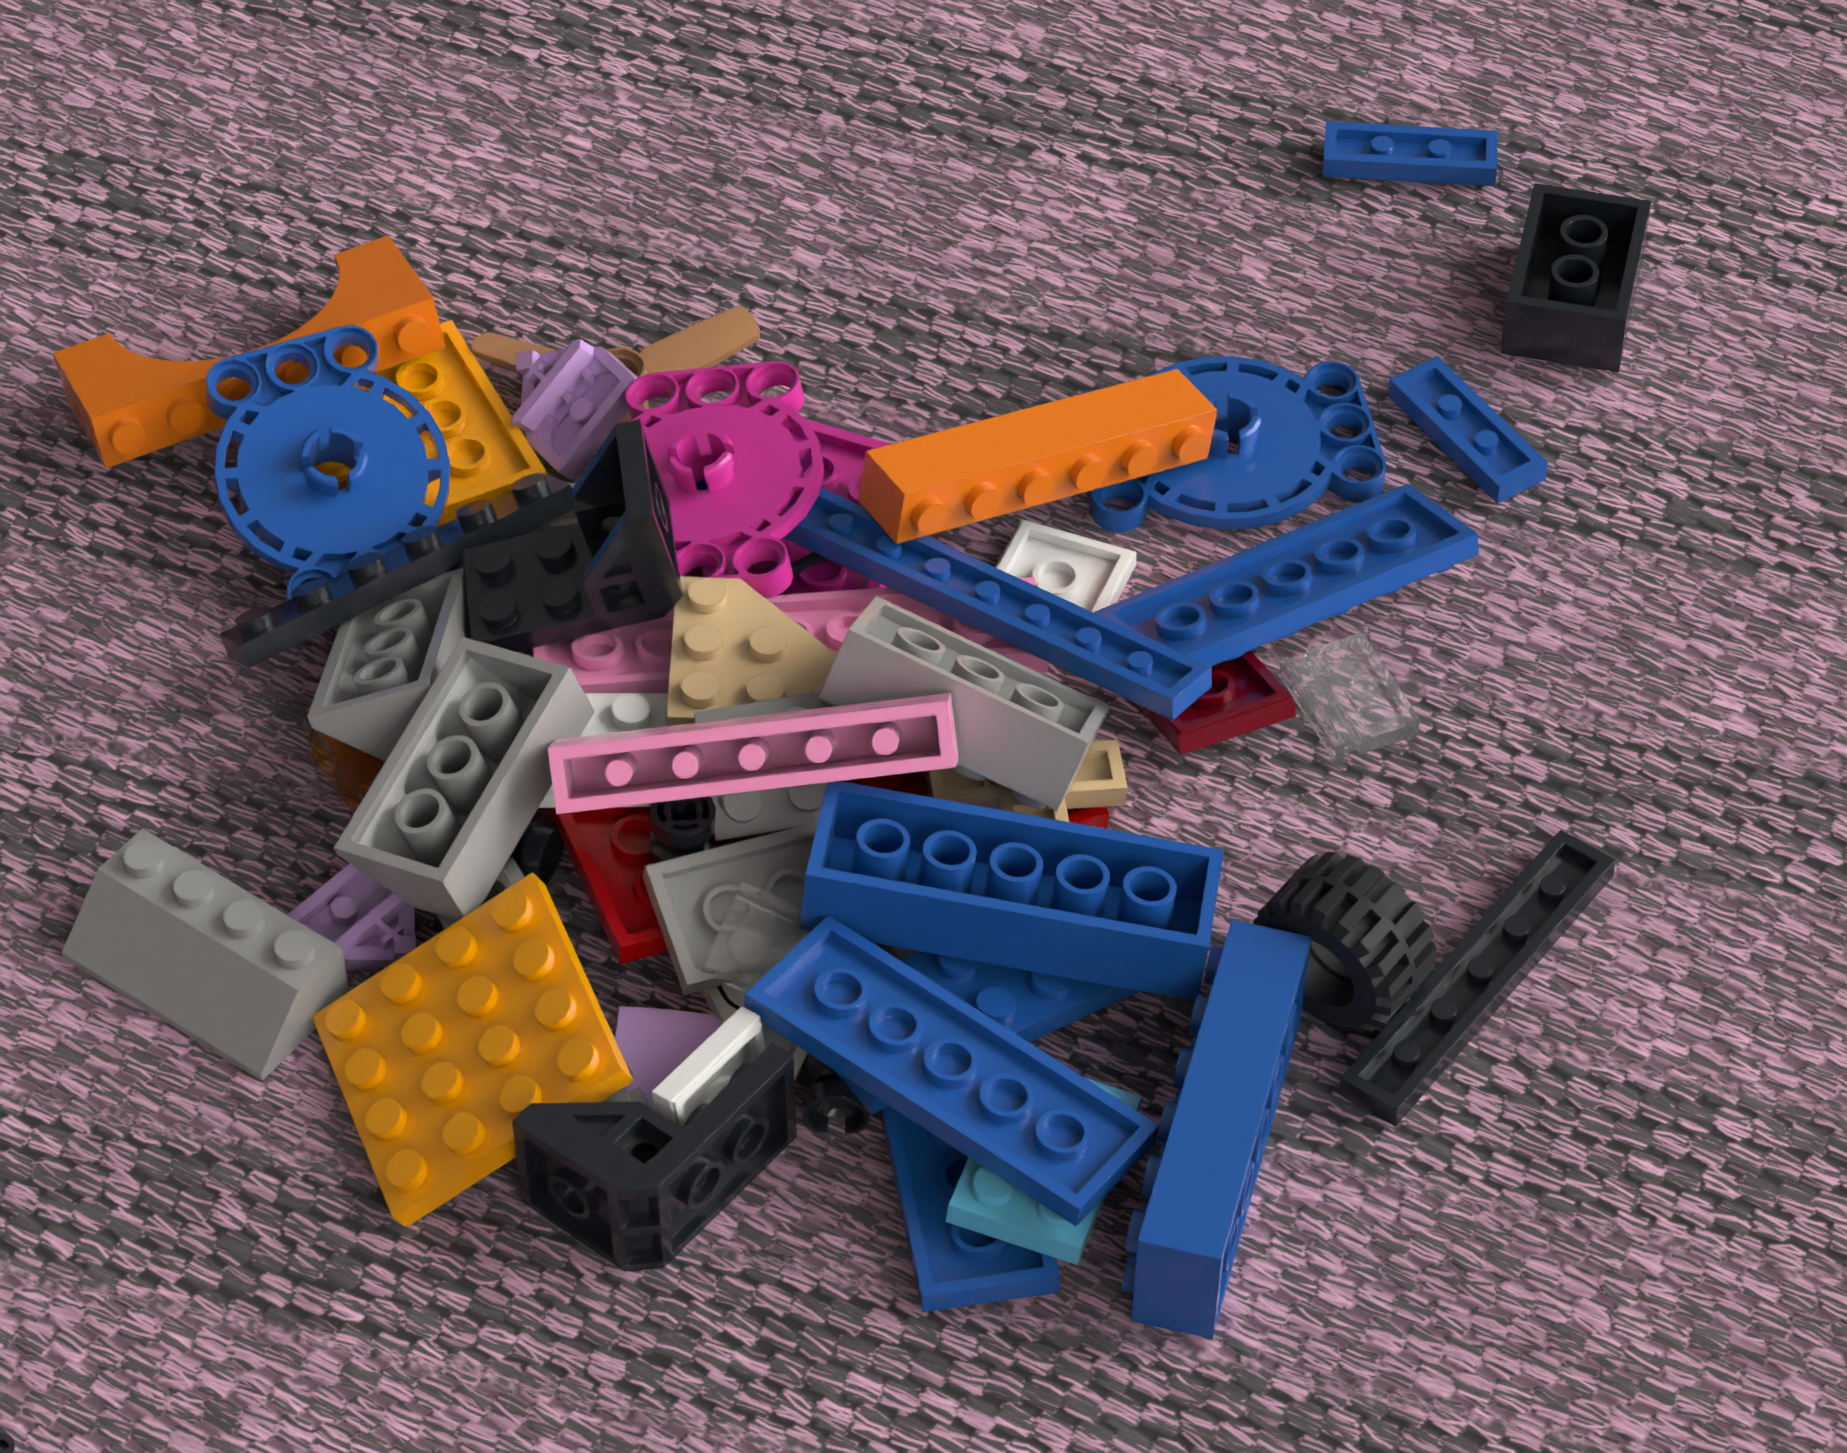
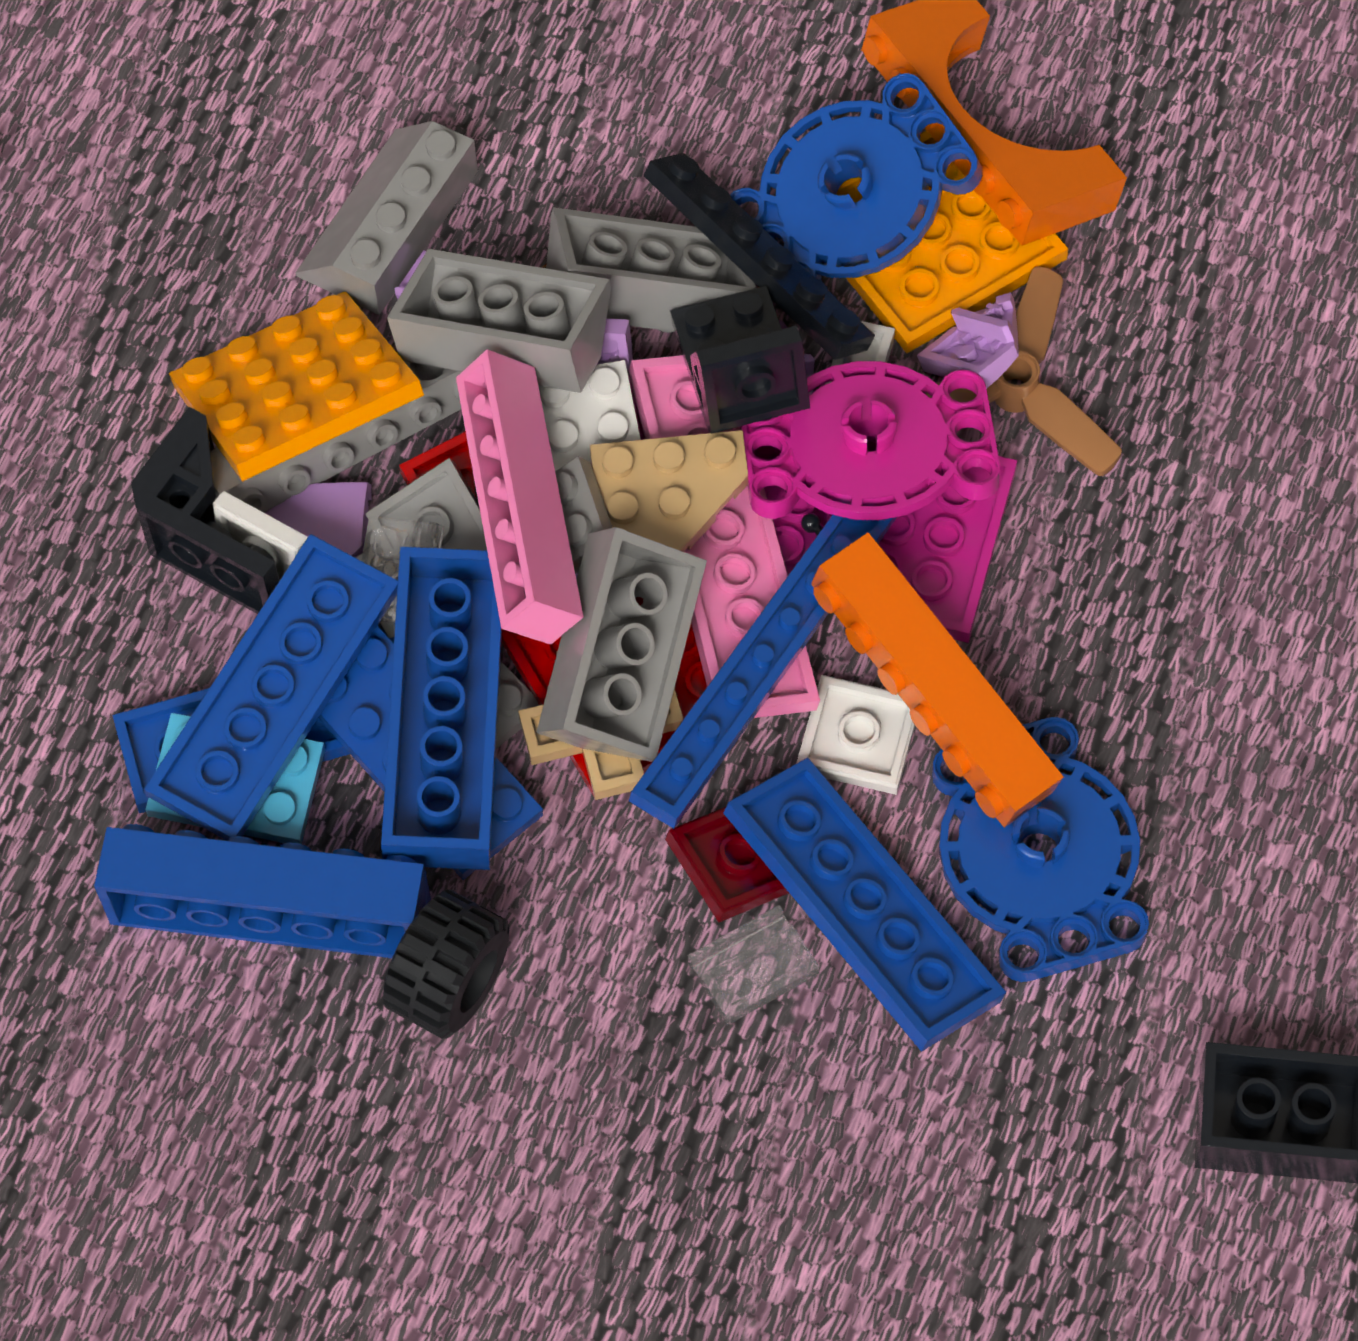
camera: 85 degrees right, 15 degrees up
(1467, 429) = (1087, 1038): blue plate -> none
(1476, 978) = (464, 1085): black plate -> none

